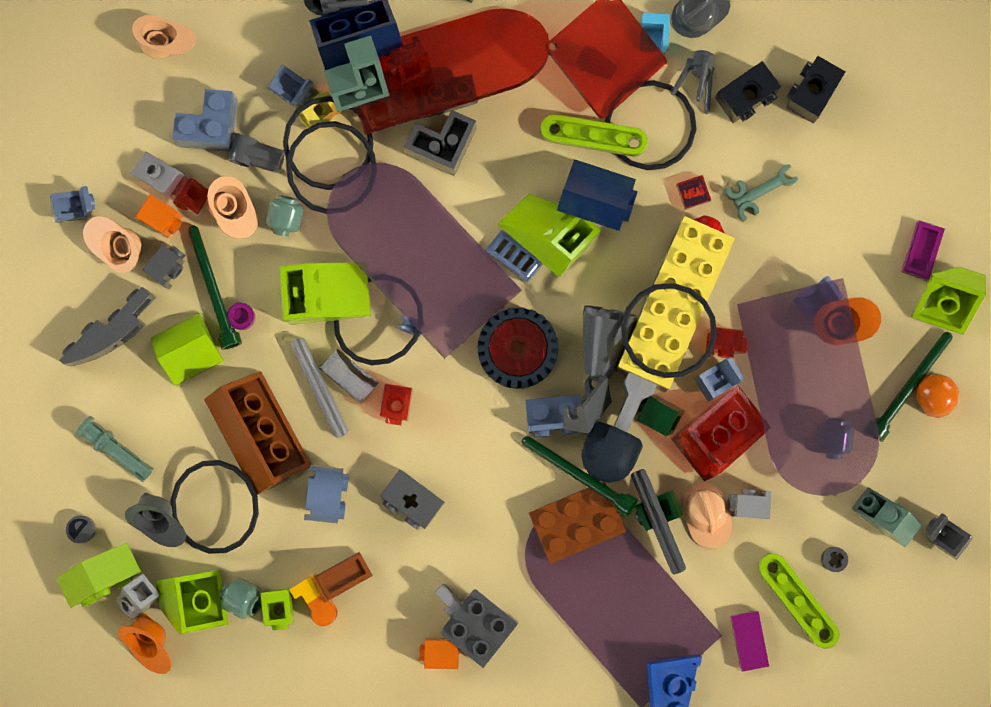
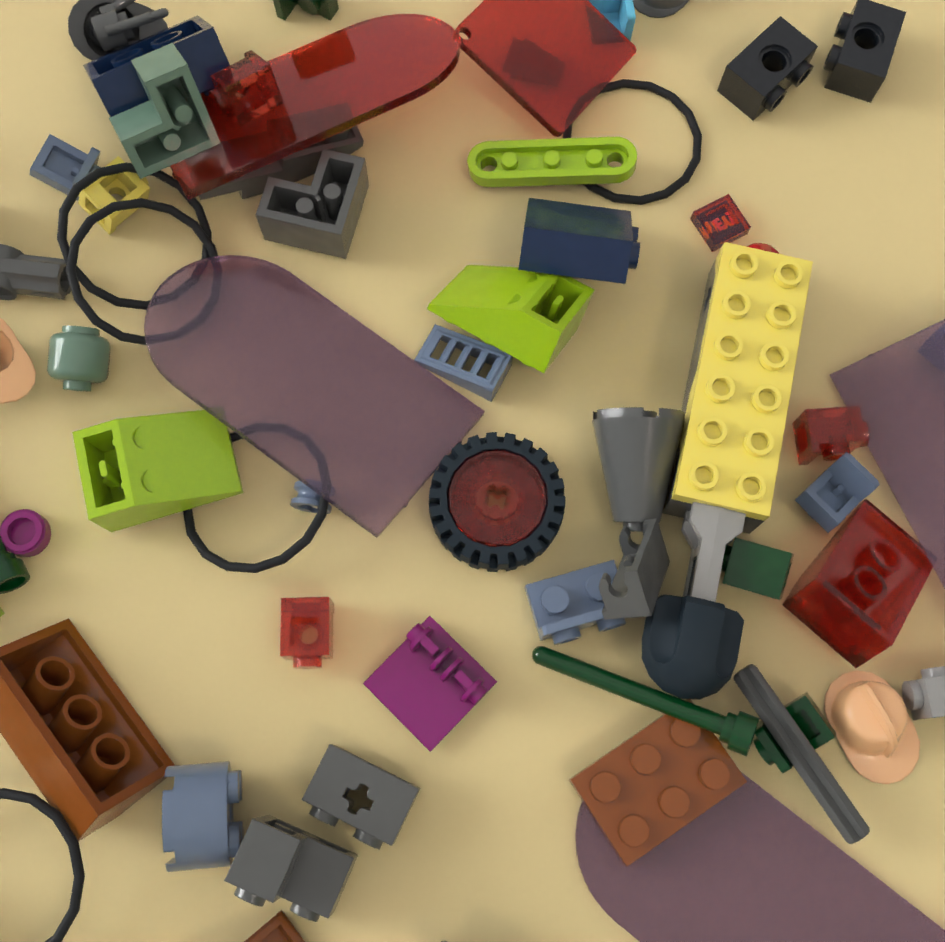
camera: 15 degrees left, 10 degrees down
(319, 387) = (173, 629): light grey axle -> none
(349, 376) = (220, 599): clear smoke slope -> none
(370, 529) = (290, 865): none -> dark grey brick
(460, 445) = (429, 683): none -> magenta hinge
(668, 374) = (717, 483): black piece -> none
(702, 68) = (690, 48): dark grey plant -> none
(744, 200) = (802, 221): sand green bar -> none

